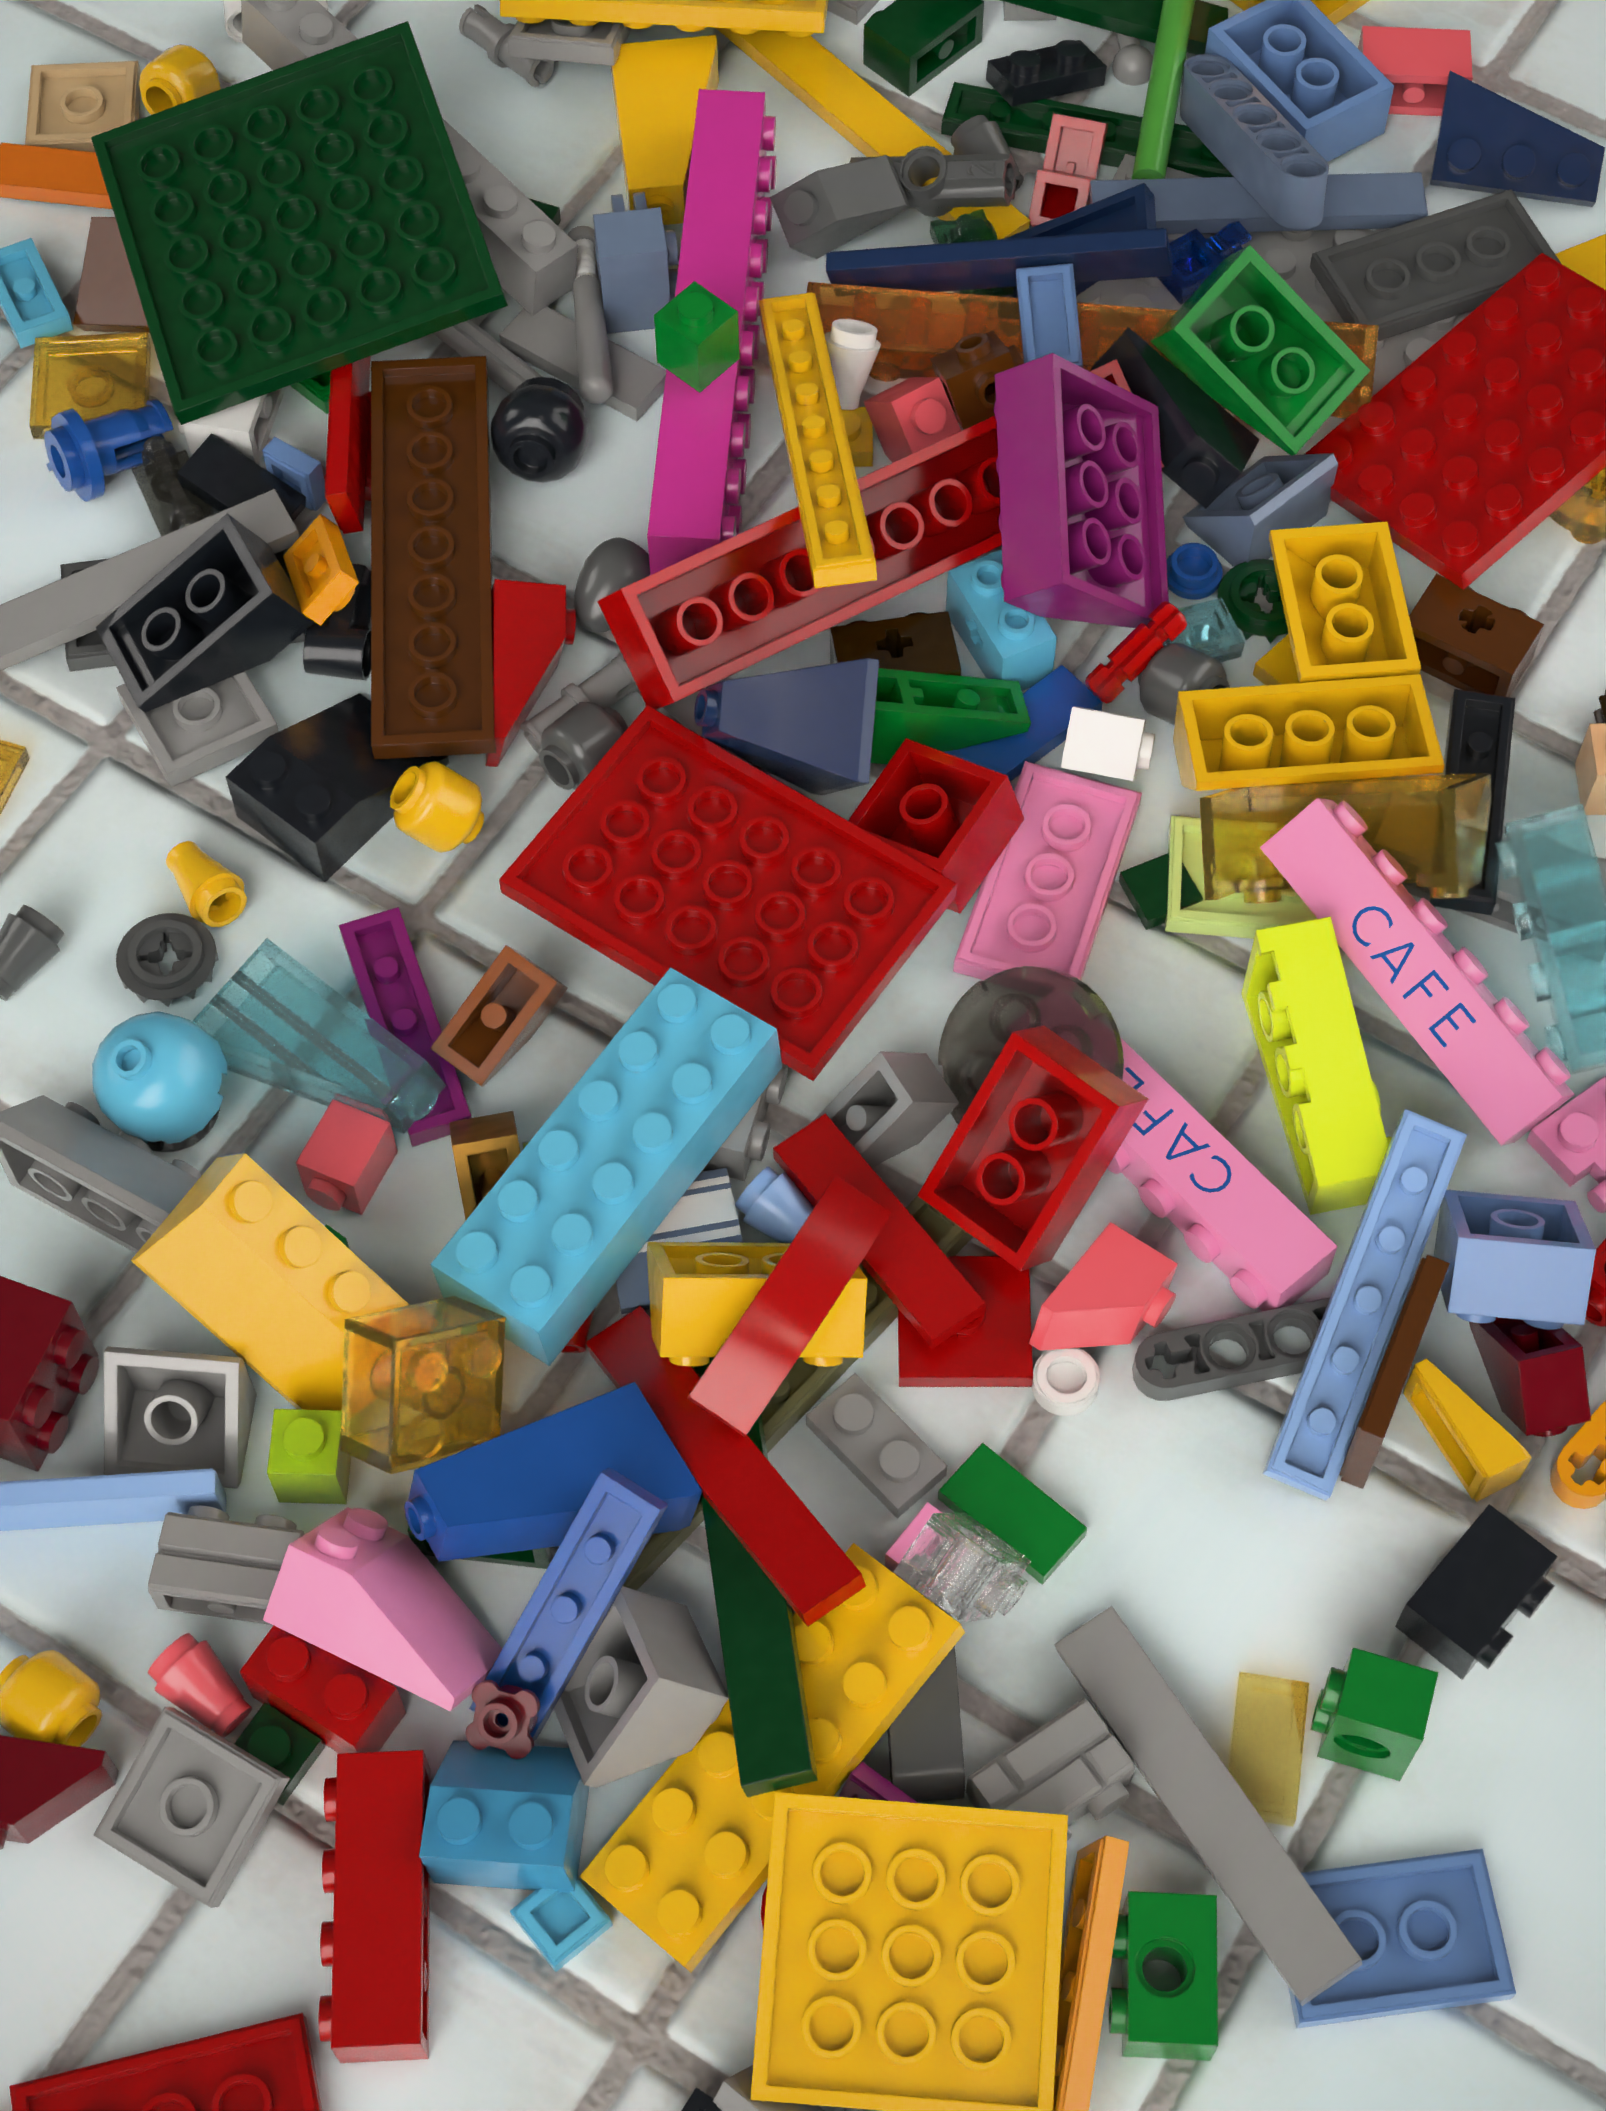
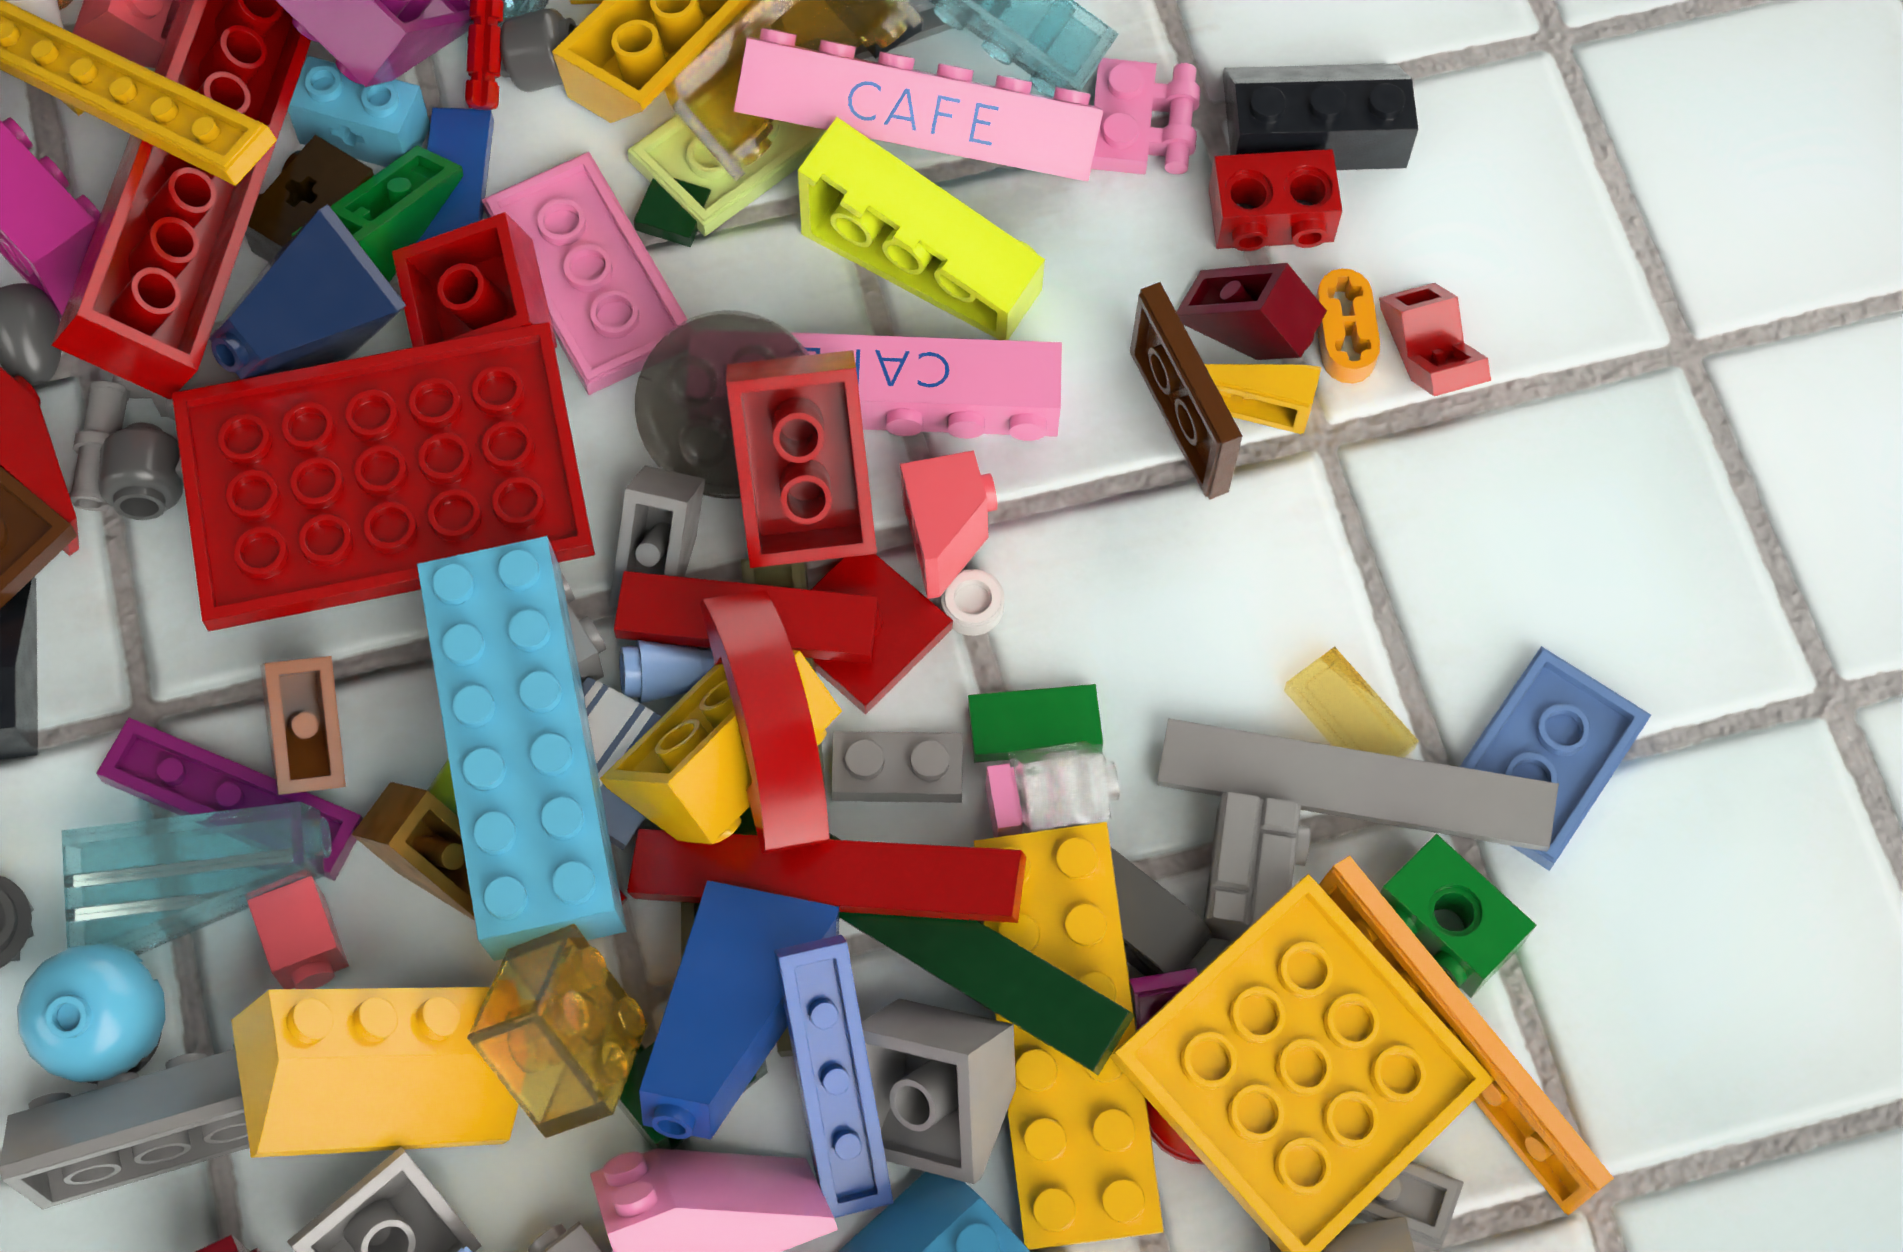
camera: 50 degrees left, 5 degrees up
(307, 1457) = (518, 1166): lime brick -> none
(437, 806) = (75, 616): yellow head -> none
(517, 1704) = (858, 1182): dark red plate -> none
(1107, 744) = (531, 135): white brick -> none
(1251, 1331) = (1066, 457): dark grey beam -> none
(1364, 1305) = (1116, 365): light blue tile -> none
(1374, 1713) = (1406, 622): green brick -> none
(1477, 1592) = (1378, 487): black brick -> none
(1514, 1259) = (1182, 235): medium blue brick -> none

